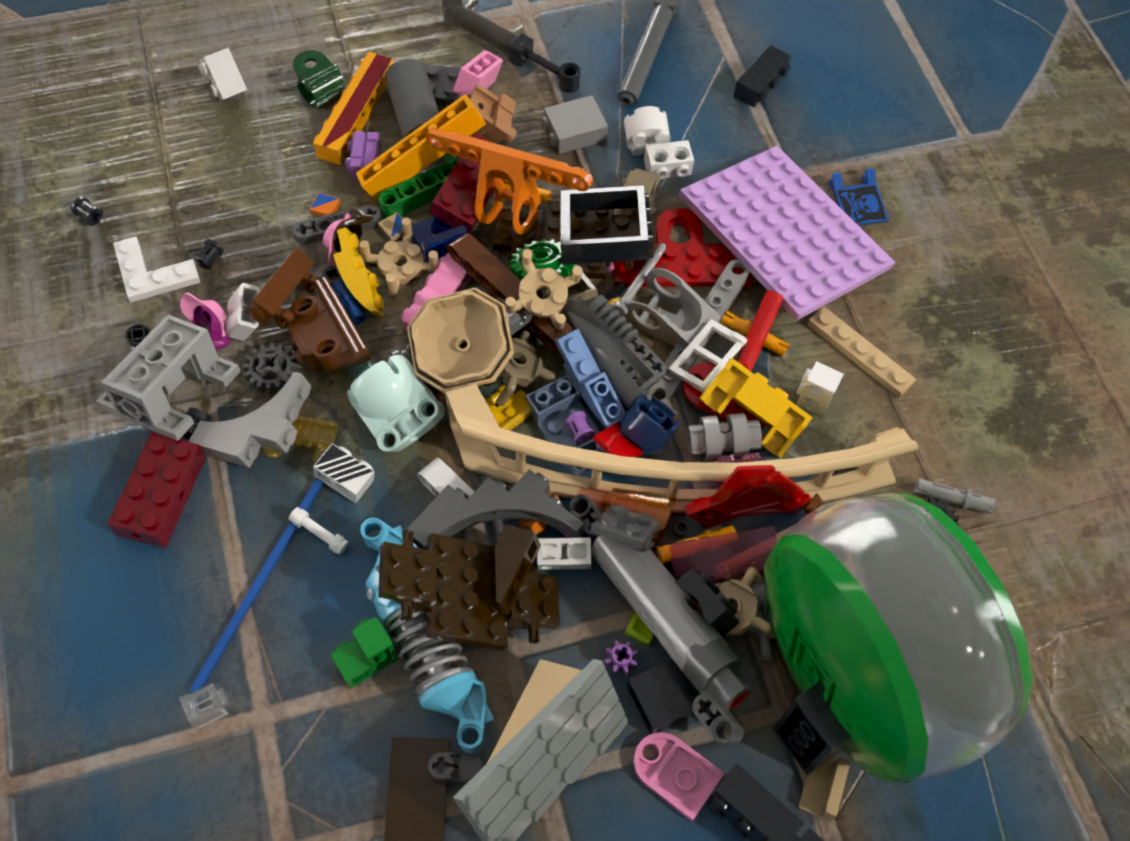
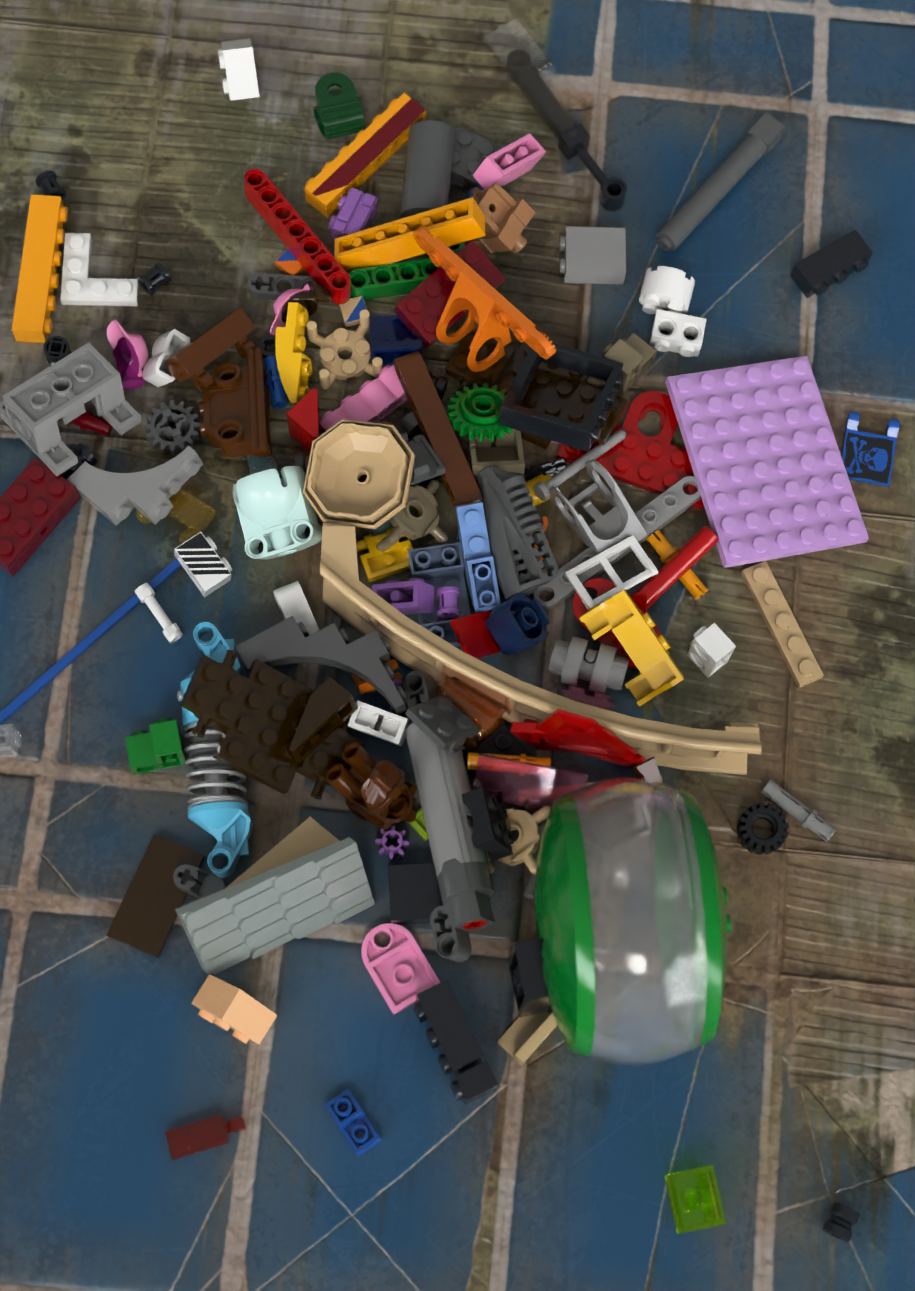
camera: 20 degrees right, 10 degrees up
(99, 279) = (39, 269): none -> light orange brick
(193, 388) = (93, 423): none -> dark red pin
(321, 181) = (297, 236): none -> red beam
(390, 322) = (305, 420): none -> red slope
(546, 279) = (457, 435): tan plate -> none
(547, 428) = (407, 596): none -> medium lavender brick
(585, 614) = (373, 788): none -> reddish brown helmet

